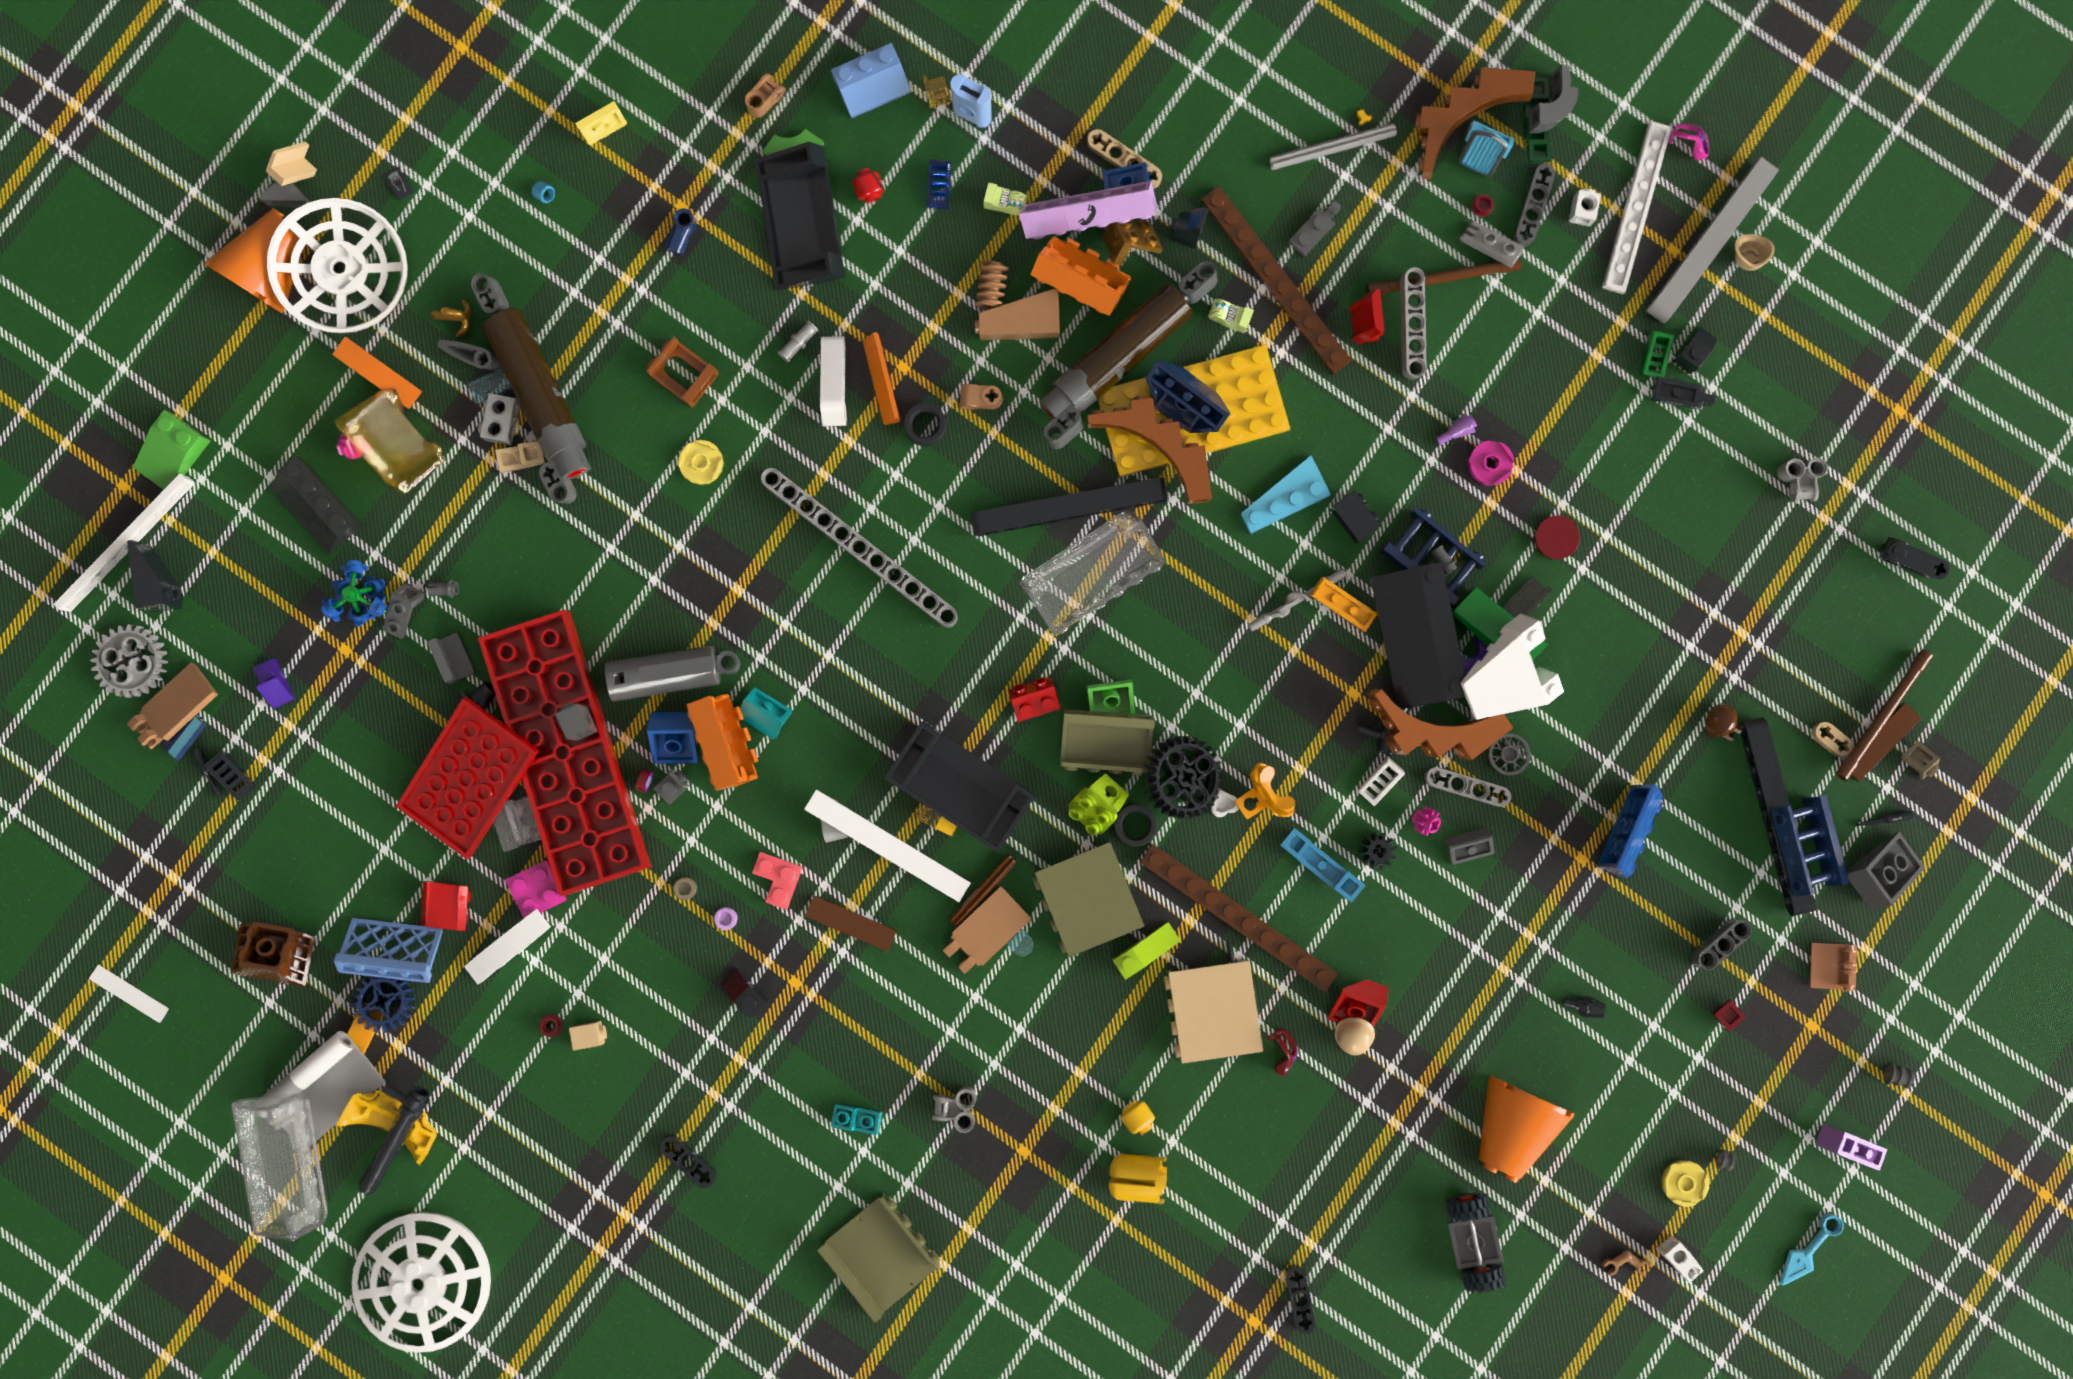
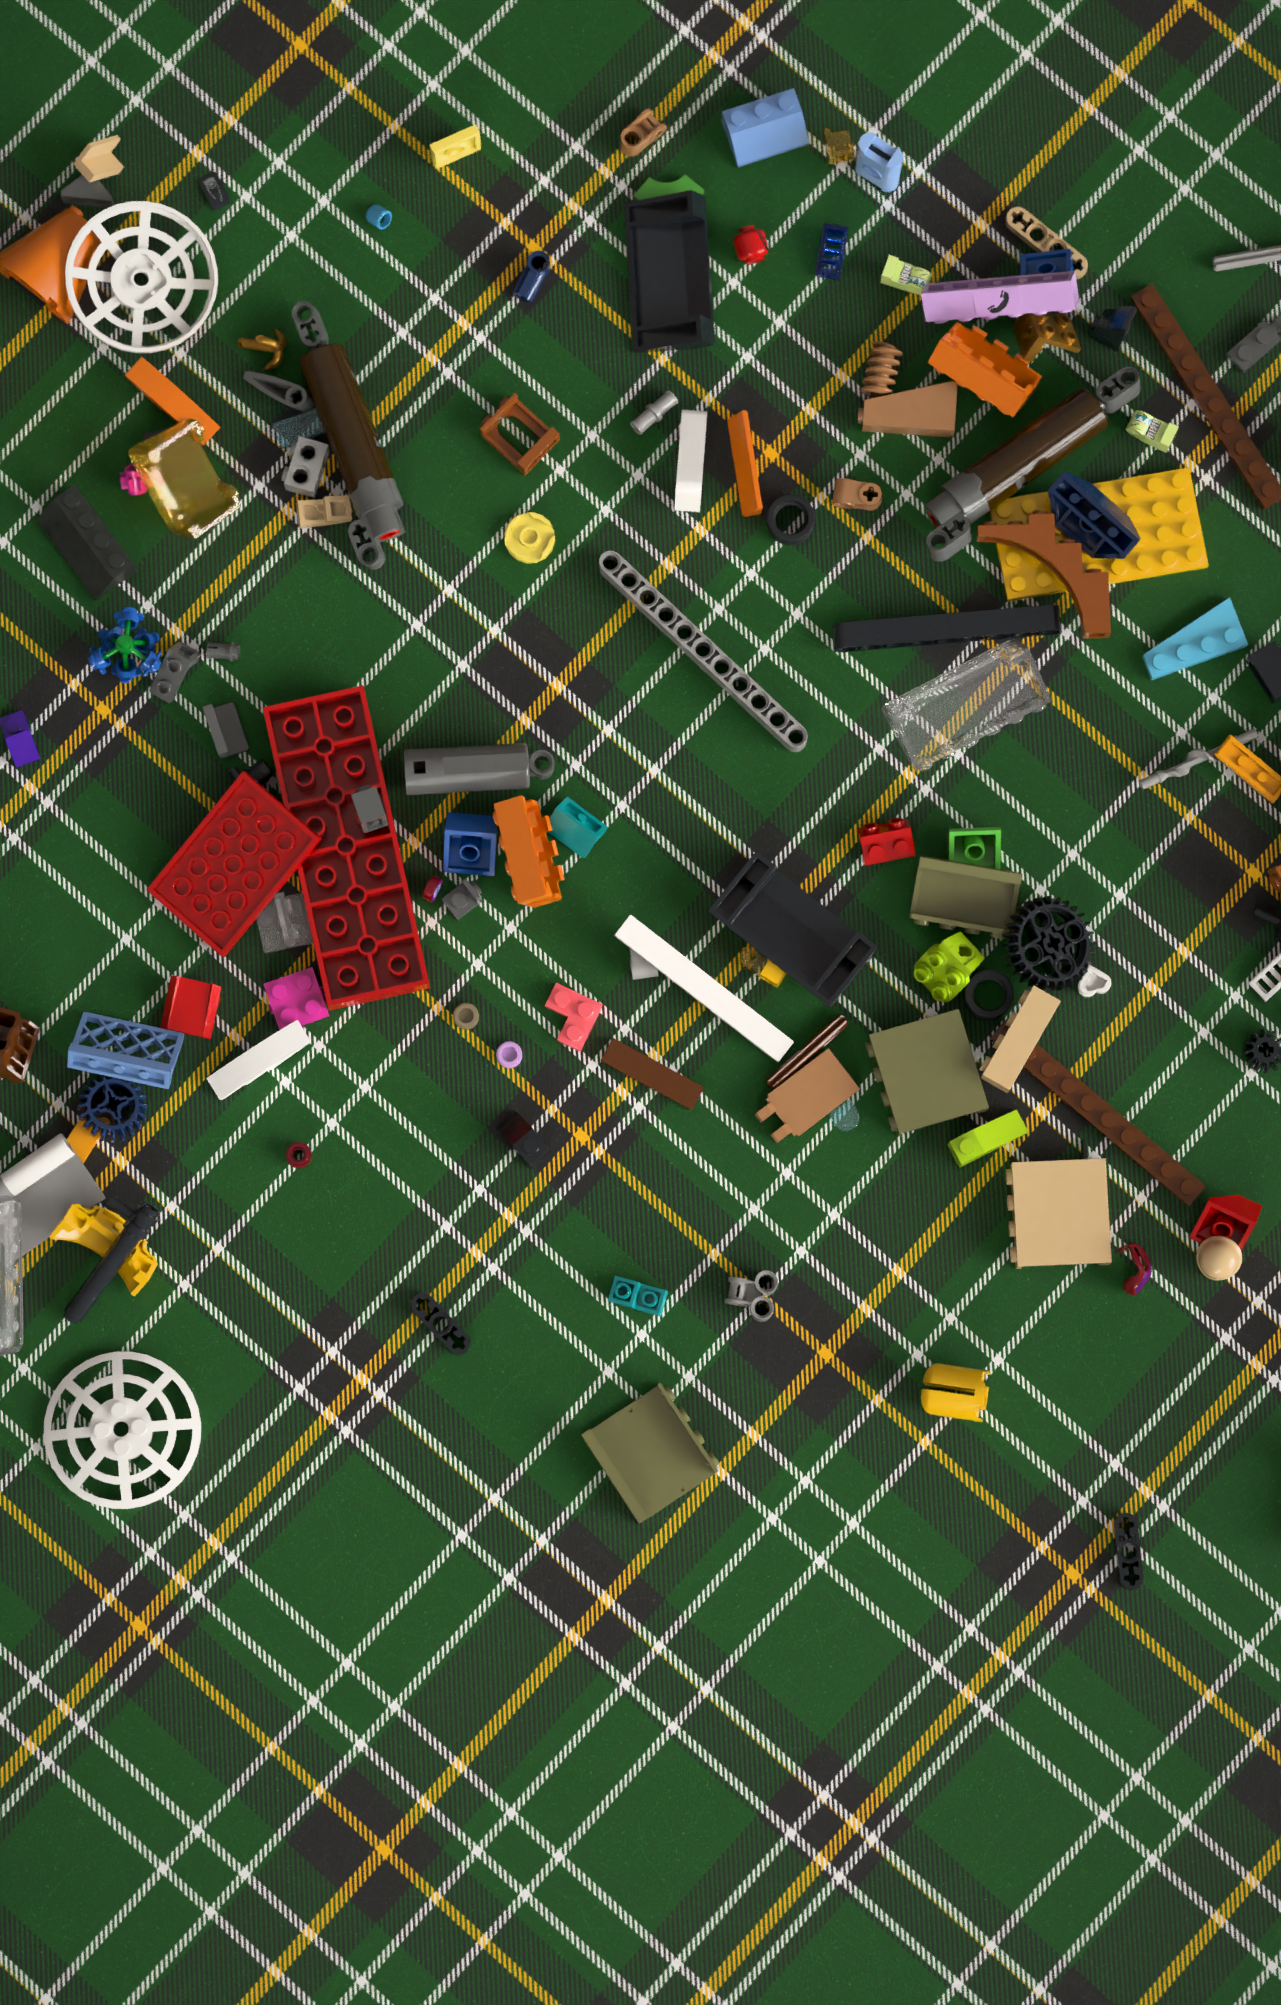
camera: 10 degrees right, 5 degrees down
(587, 1035) = (341, 1169): tan brick -> none
(1137, 1117) = (960, 1325): yellow head -> none
(1166, 863) = (1020, 1038): none -> tan brick
(1261, 779) = (1143, 978): light orange piece -> none
(1322, 865) = (1198, 1061): dark azure slope -> none

